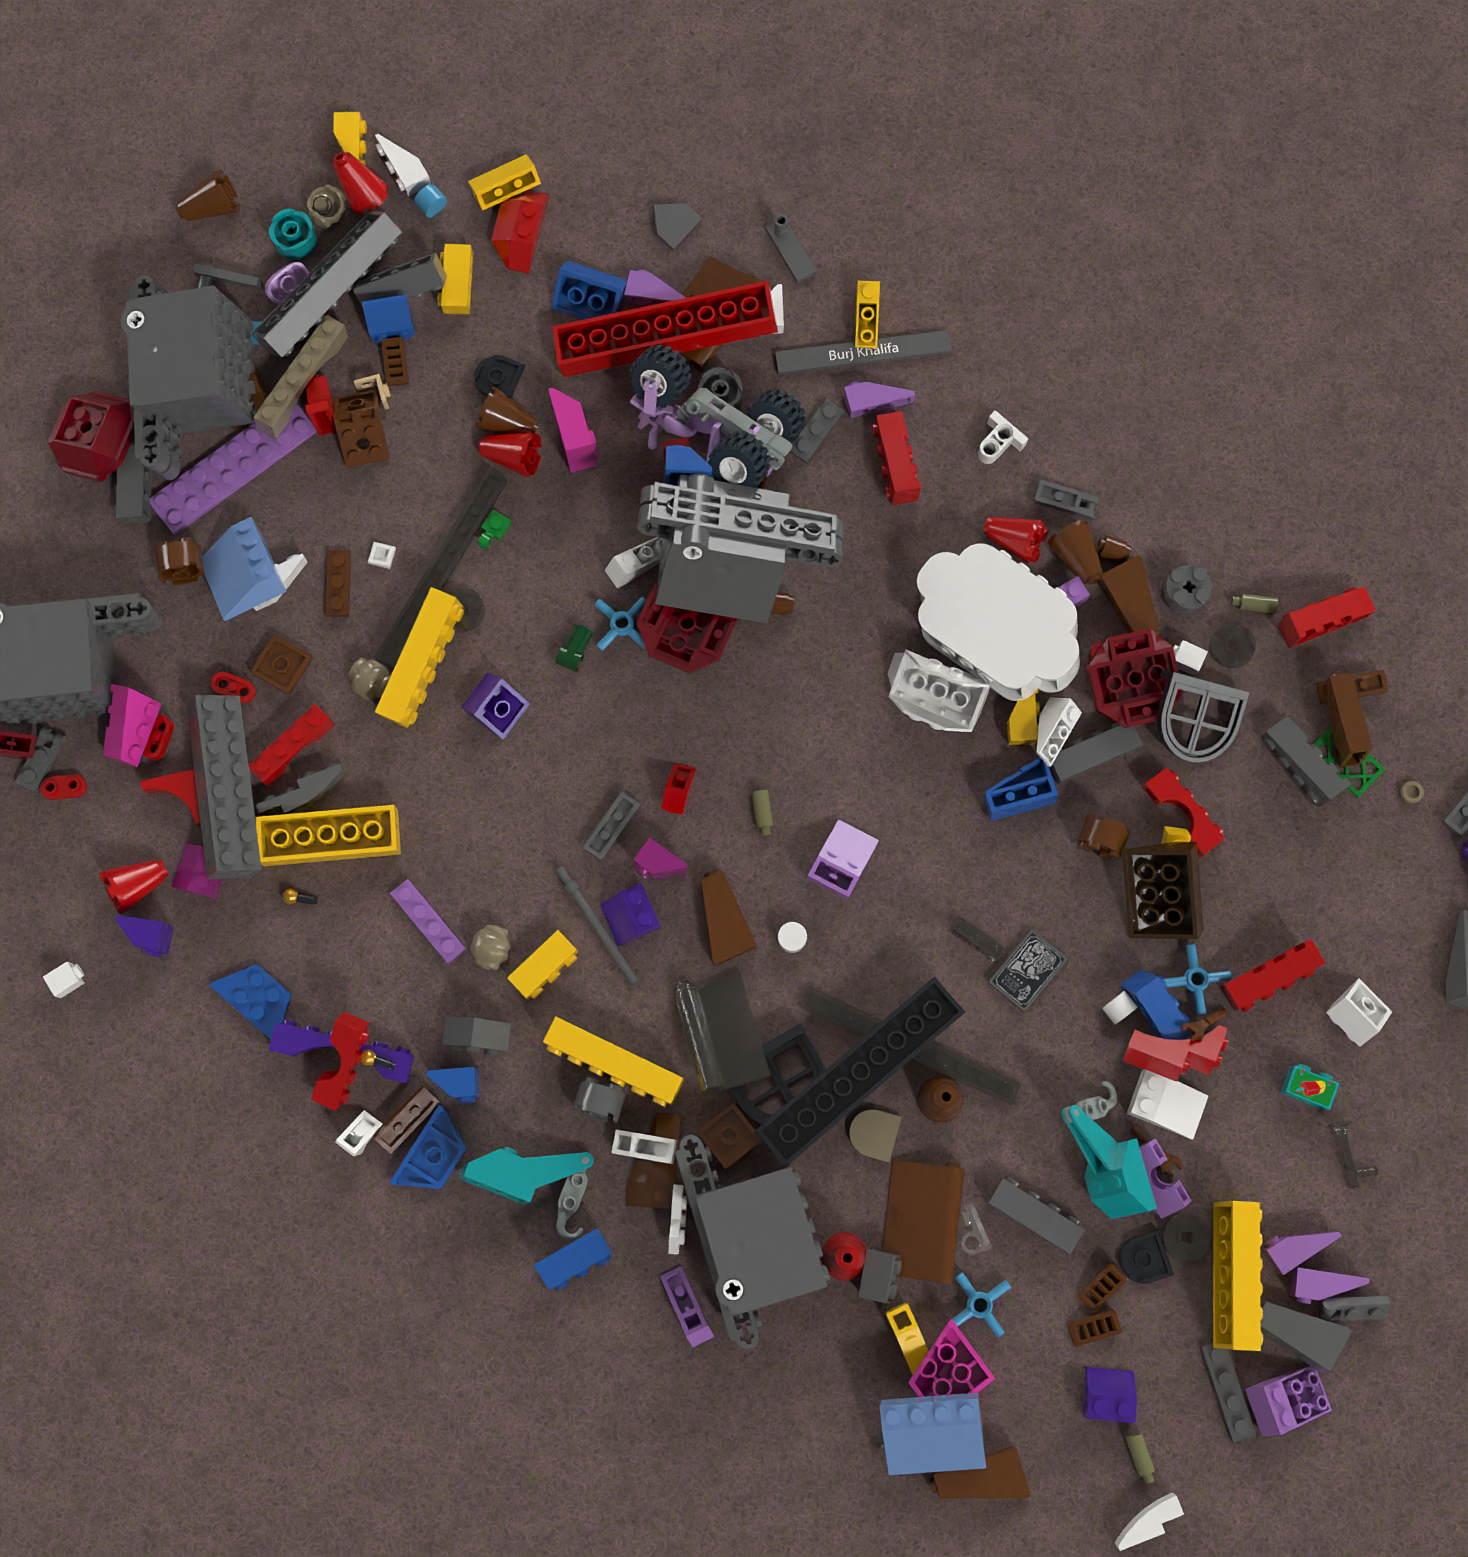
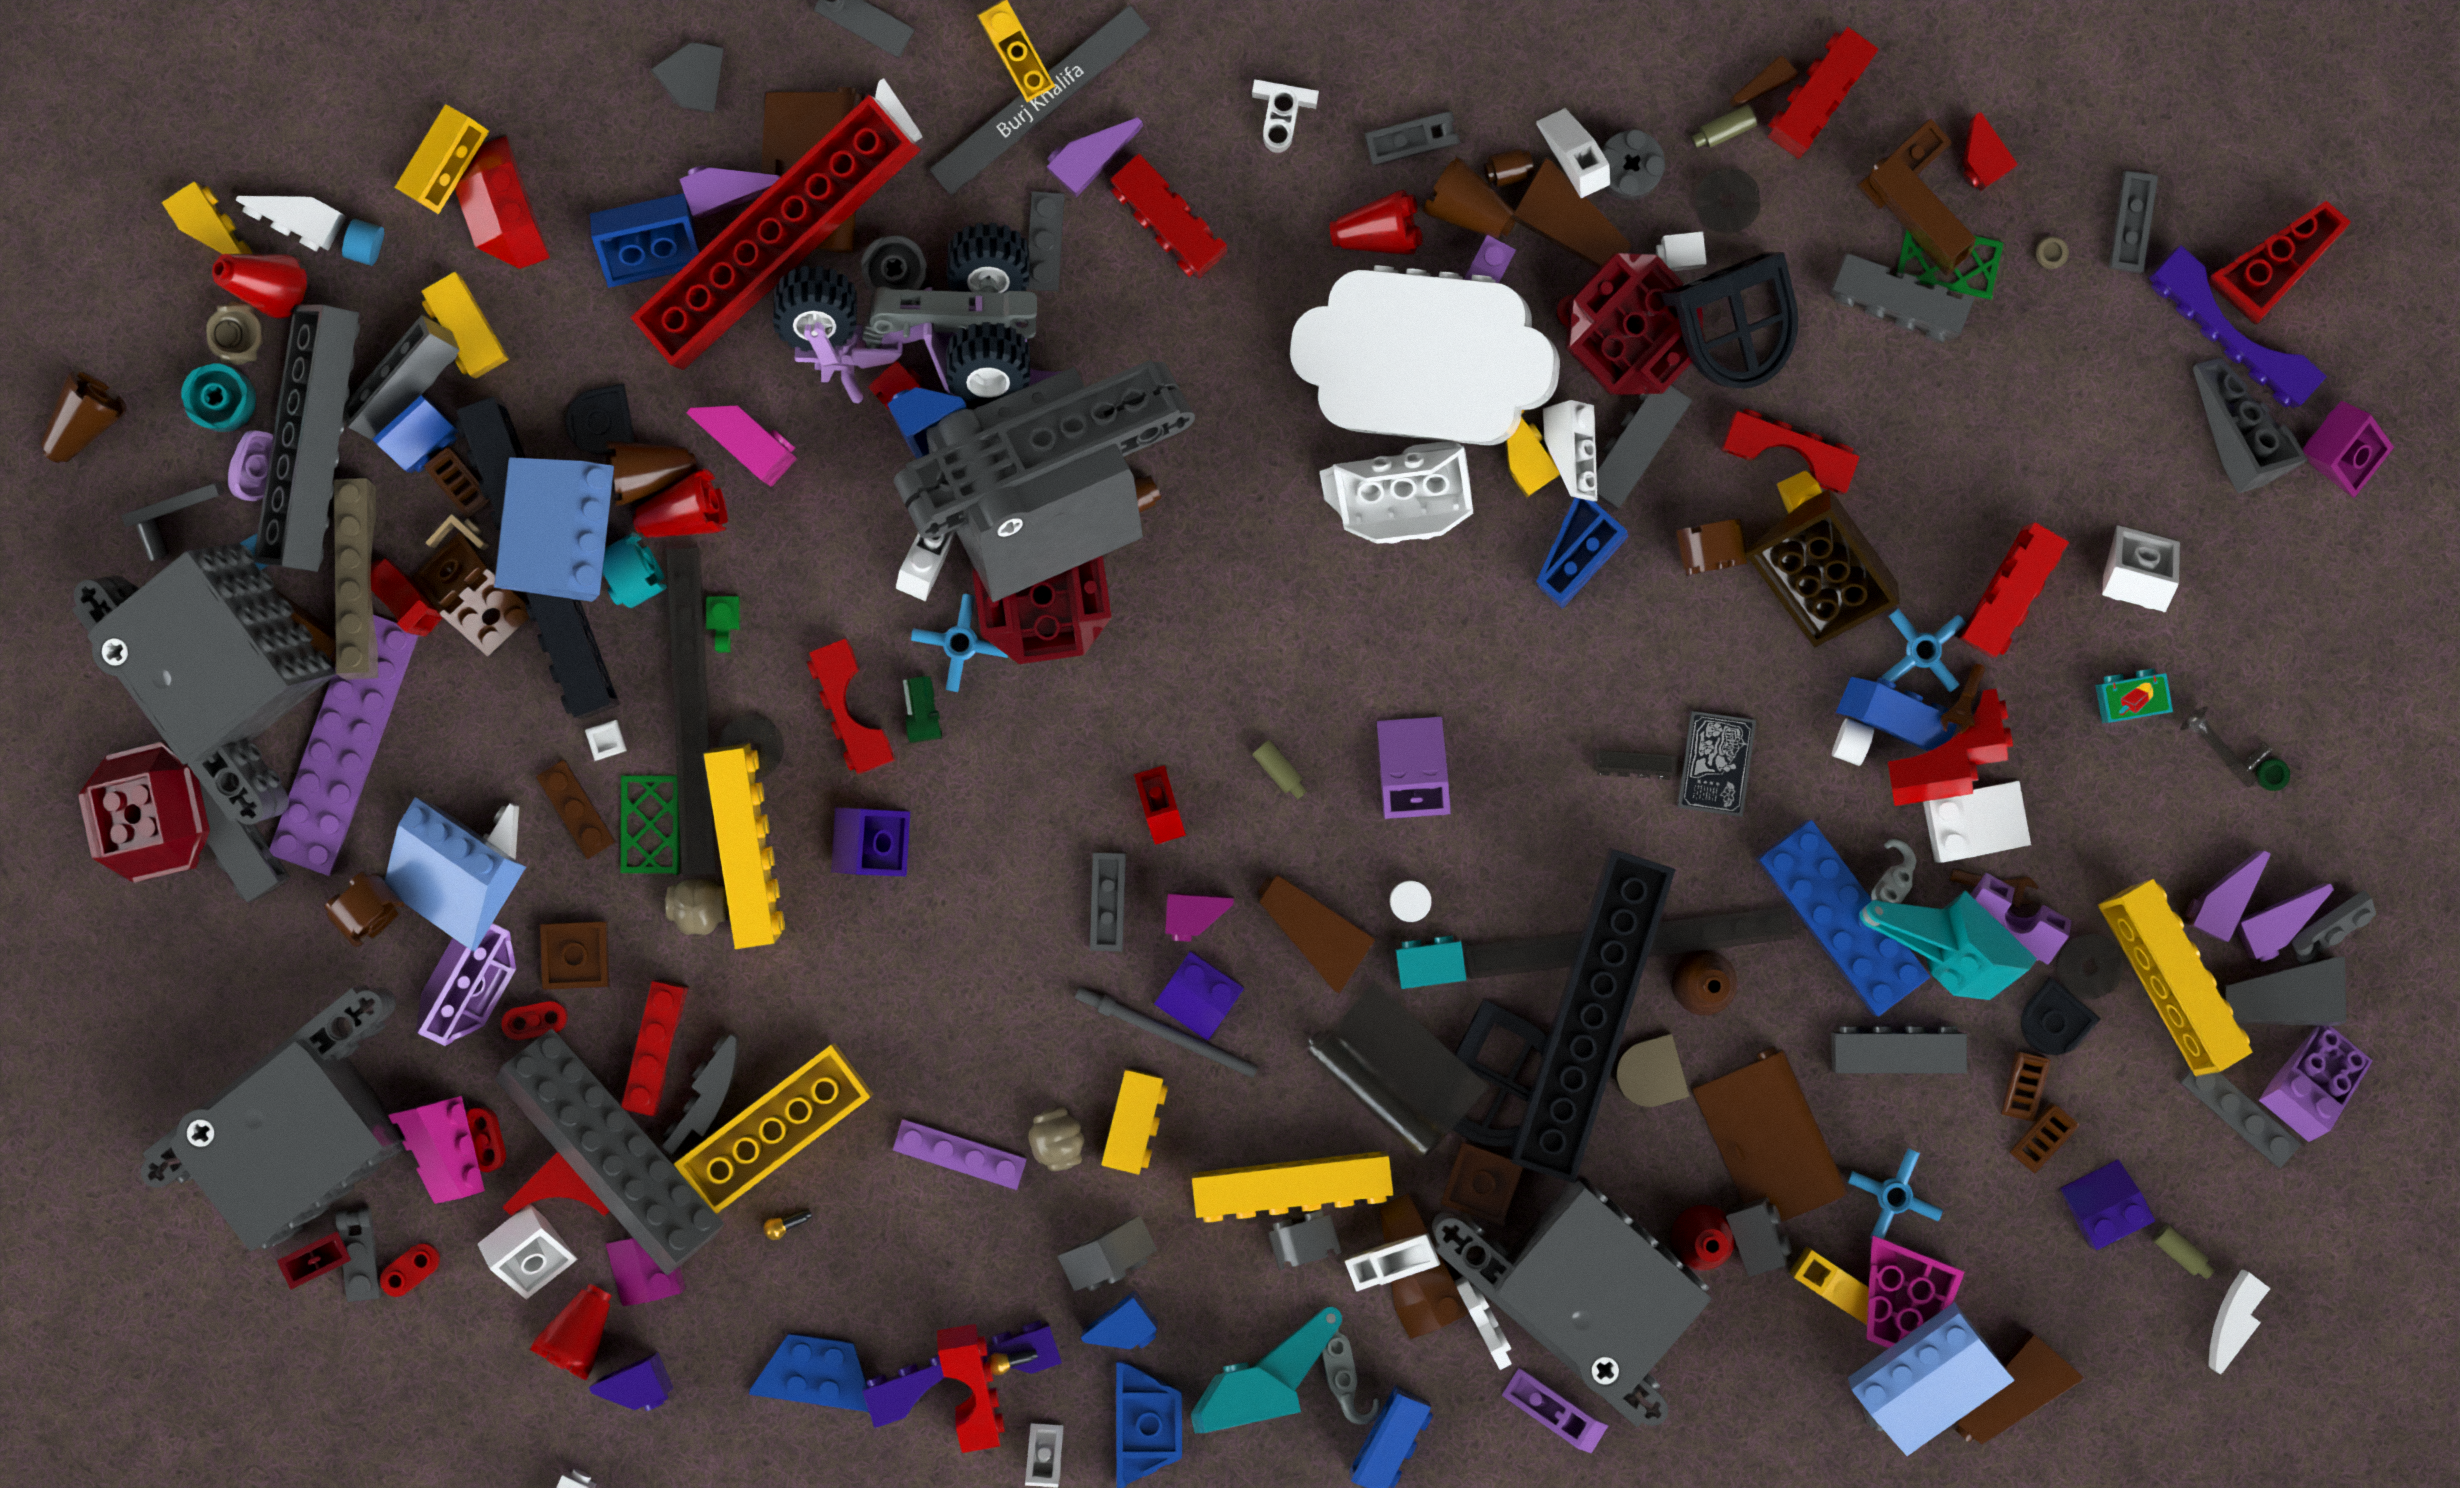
camera: 25 degrees left, 10 degrees up
(137, 818) = (526, 1252): none -> white slope
(208, 643) = (466, 987): none -> medium lavender wedge
(356, 618) = (628, 841): none -> green window
(406, 1119) = (1088, 1403): reddish brown plate -> none
(410, 428) = (561, 620): none -> black brick
(430, 409) = (554, 527): none -> medium blue slope
(458, 466) = (631, 572): none -> teal brick
(540, 593) = (835, 668): none -> red arch
(781, 981) = (1430, 963): none -> teal brick
(971, 1218) = (1841, 1113): clear plate -> none
(1045, 1092) = (1830, 905): none -> blue brick
(1159, 562) = (1576, 152): none -> white slope
(1301, 590) = (1772, 77): none -> reddish brown slope
(1369, 1189) = (2273, 774): none -> dark green tile
(1404, 711) = (1985, 155): none -> red slope

